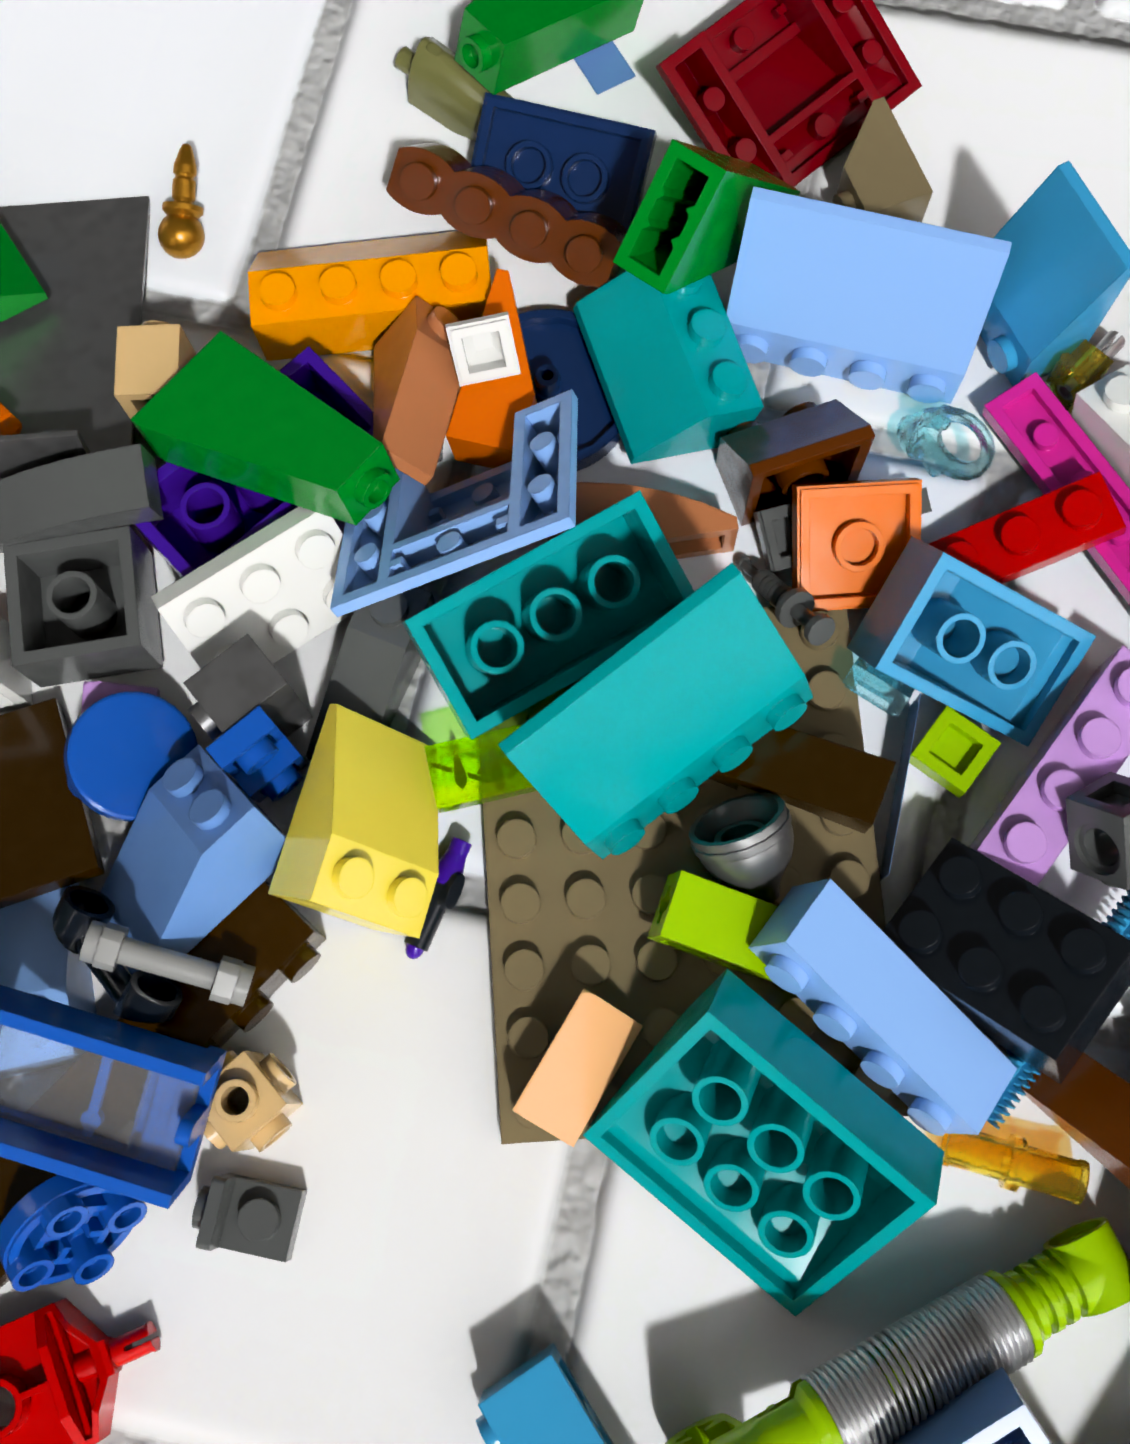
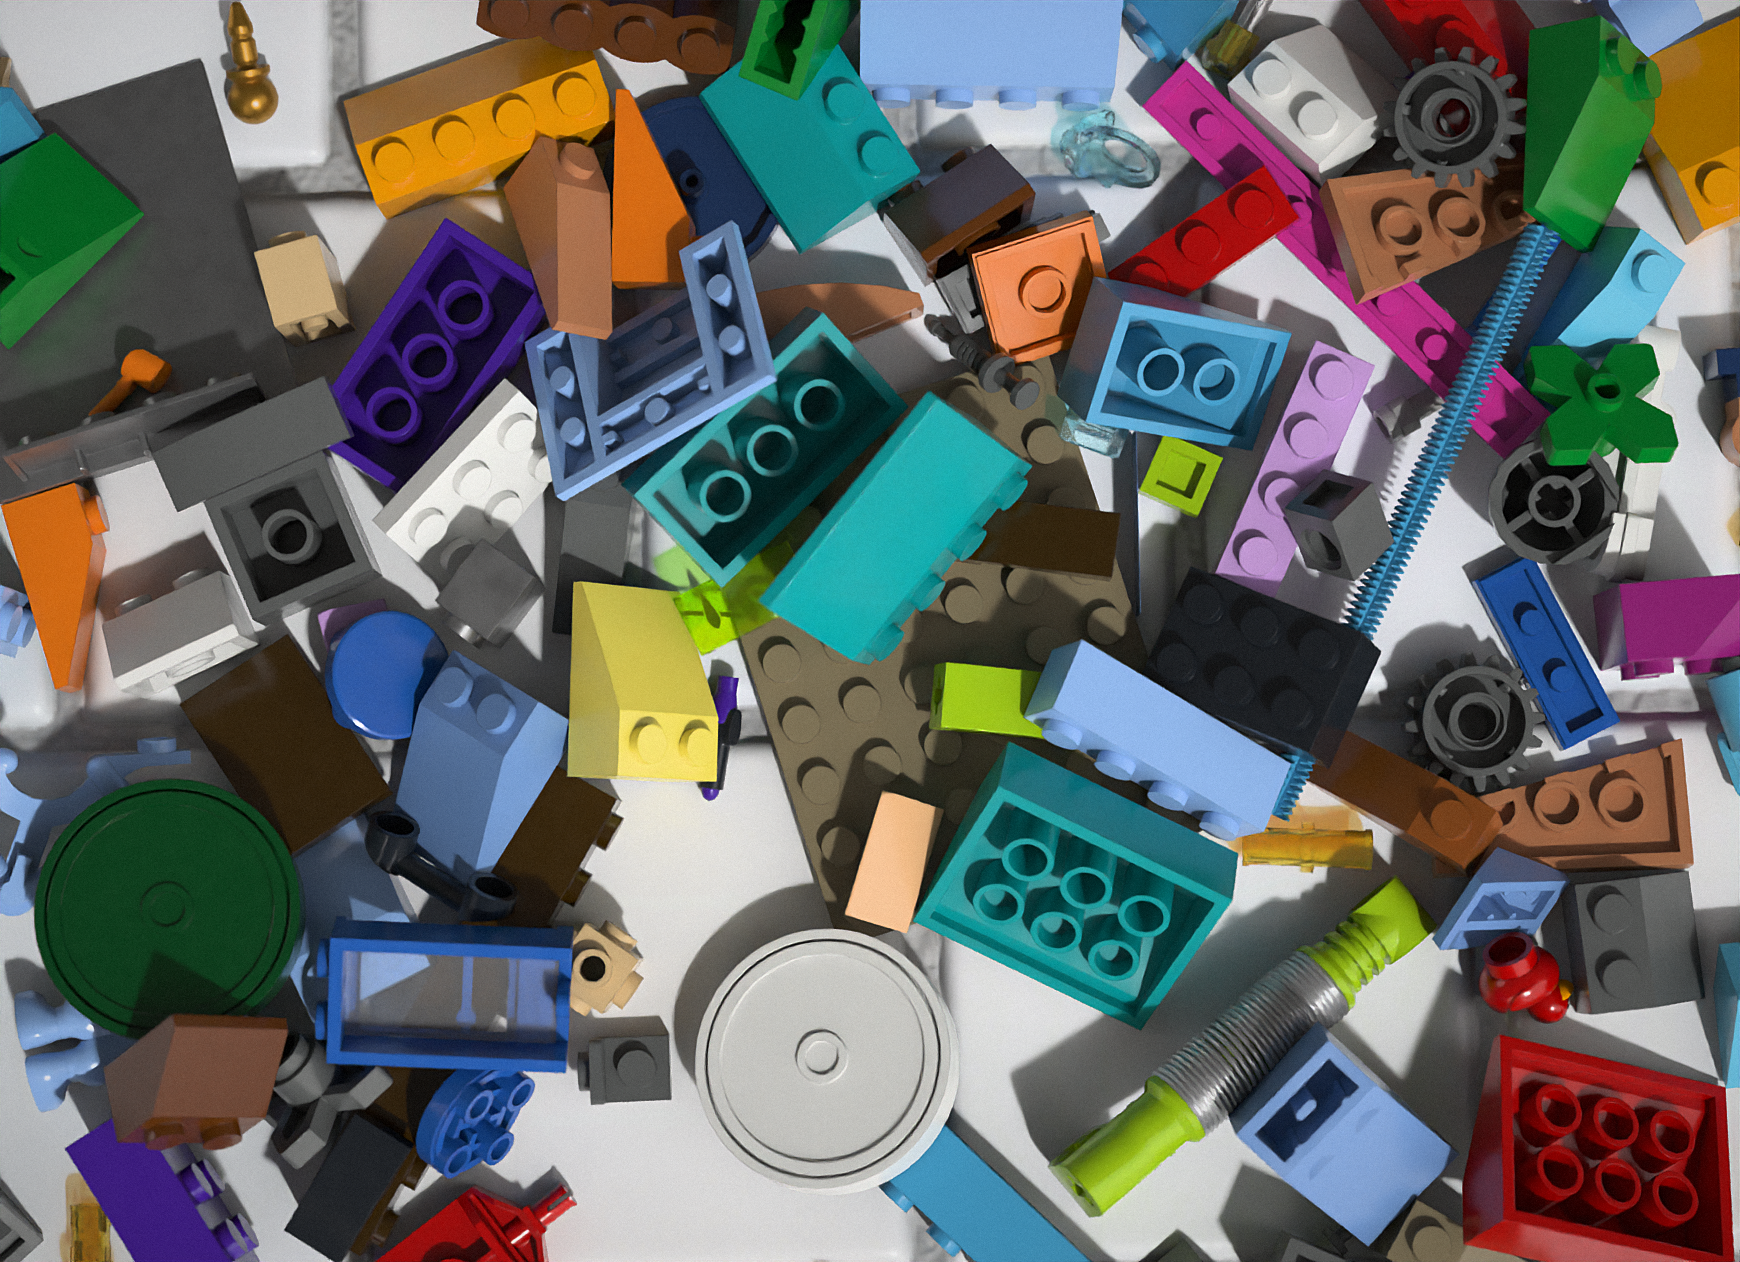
camera: 20 degrees left, 10 degrees up
(108, 946) = (553, 864): light grey bar -> none
(259, 757) = (519, 649): blue slope -> none
(265, 433) = (436, 332): green slope -> none
(454, 1271) = (827, 1062): none -> white brick
(483, 348) = (629, 188): white slope -> none
(746, 843) = (999, 619): flat silver helmet -> none

